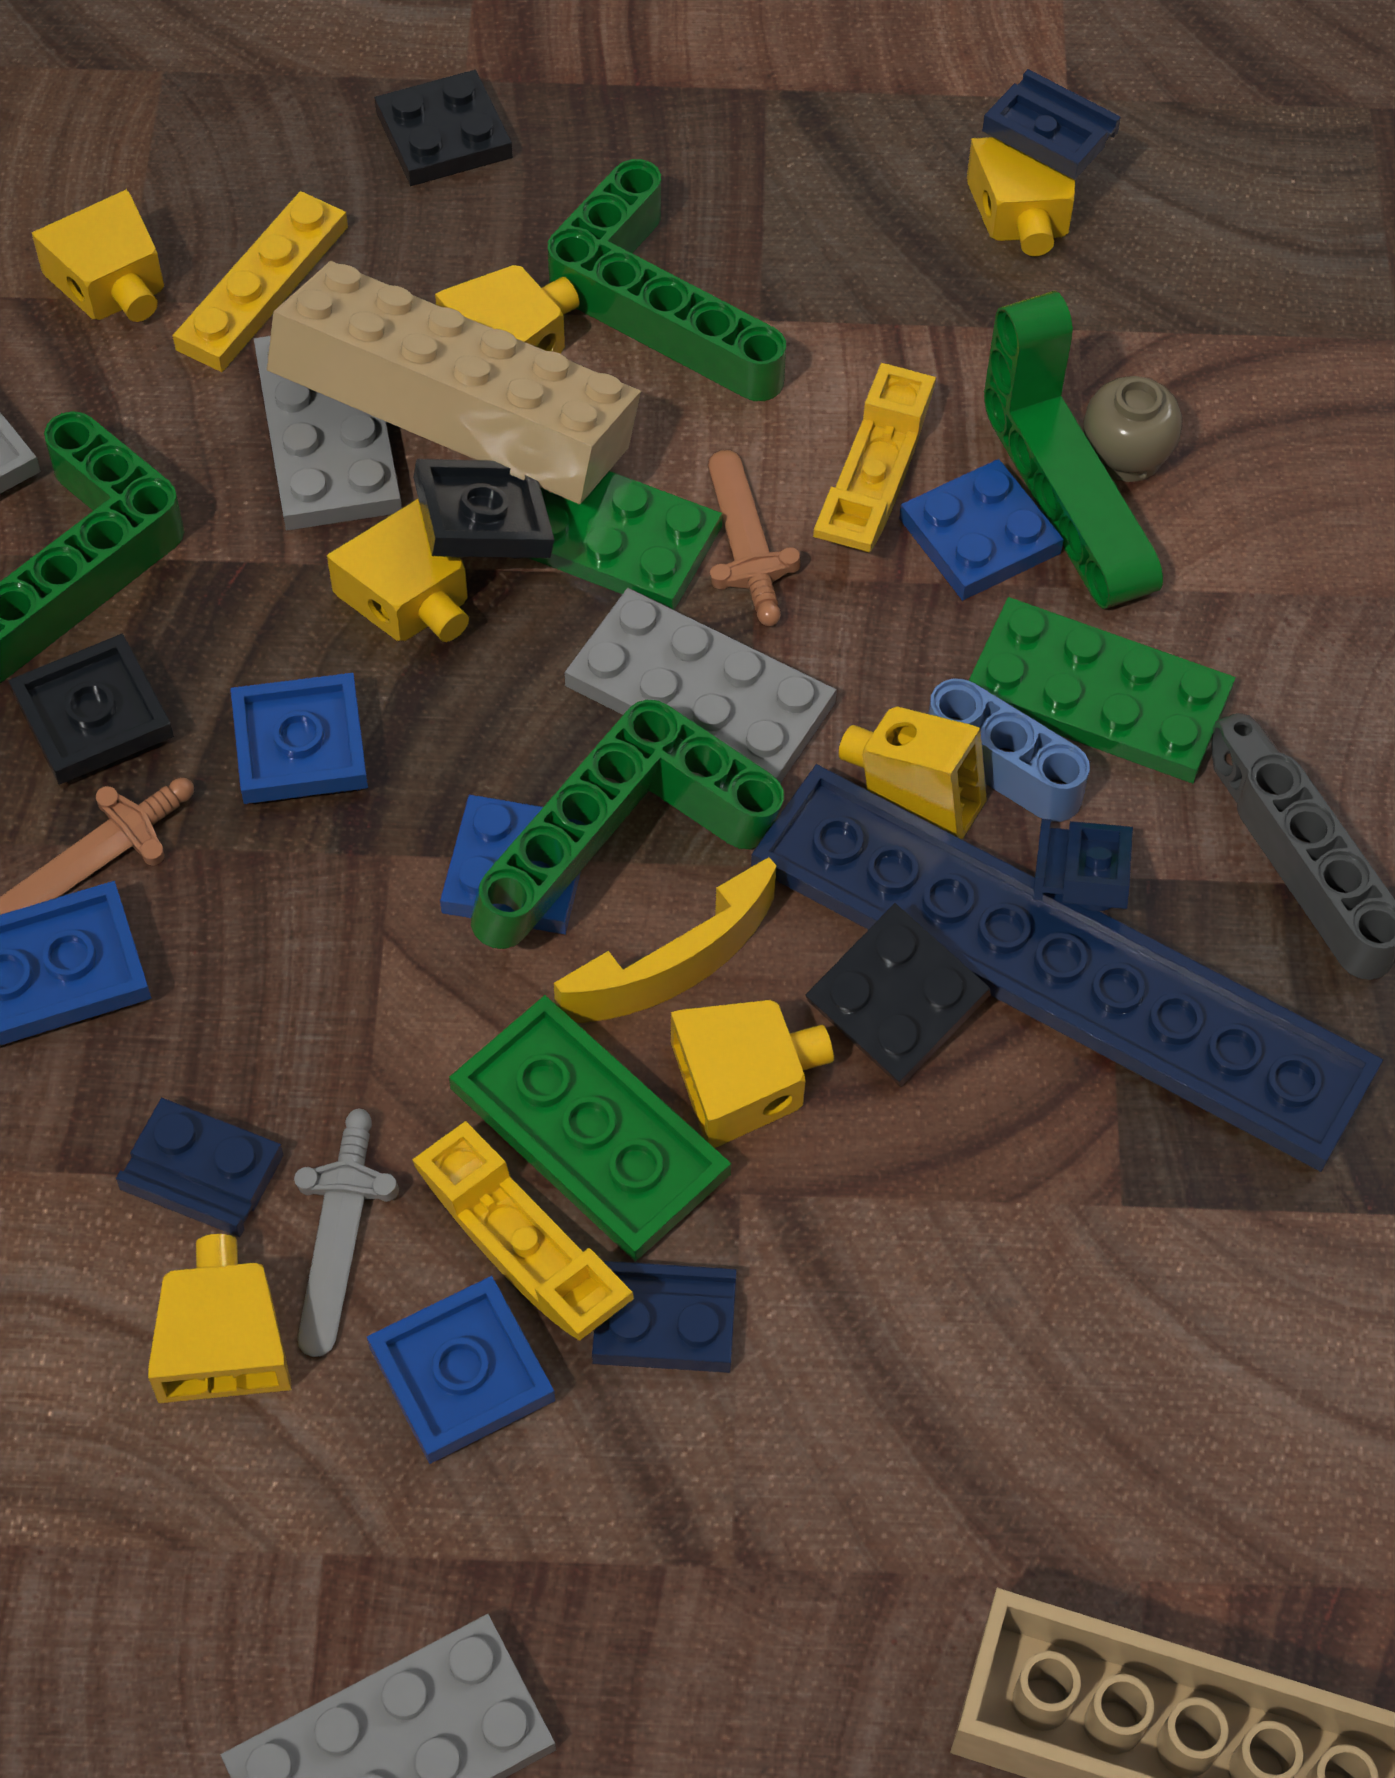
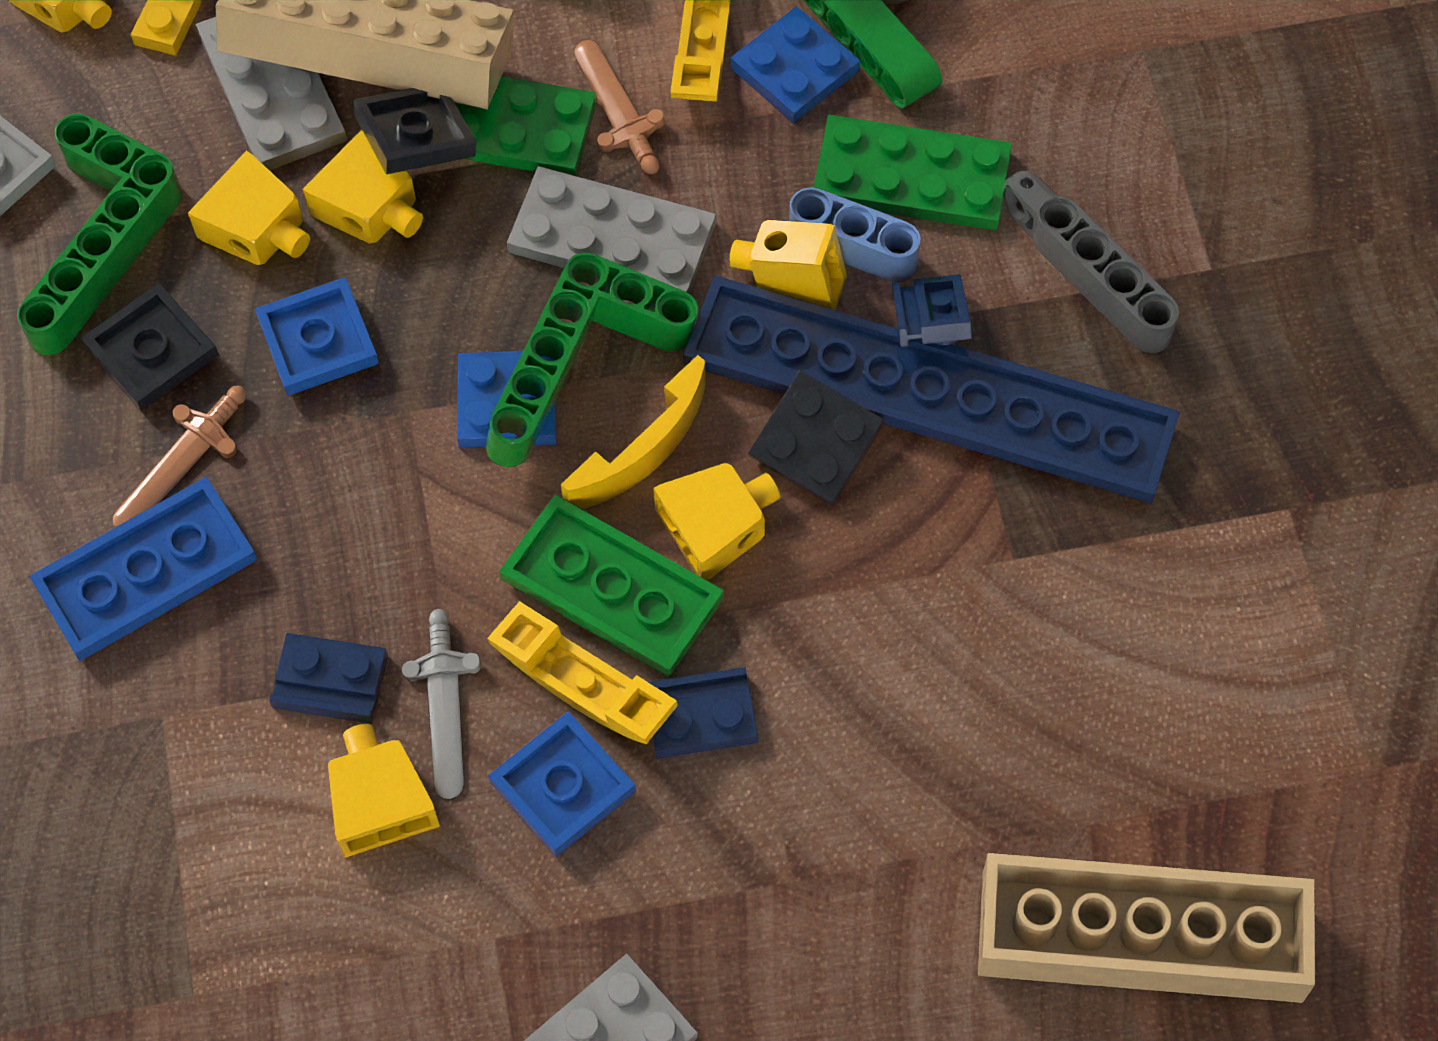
camera: 10 degrees left, 5 degrees up
(257, 574) = (250, 214): none -> yellow torso

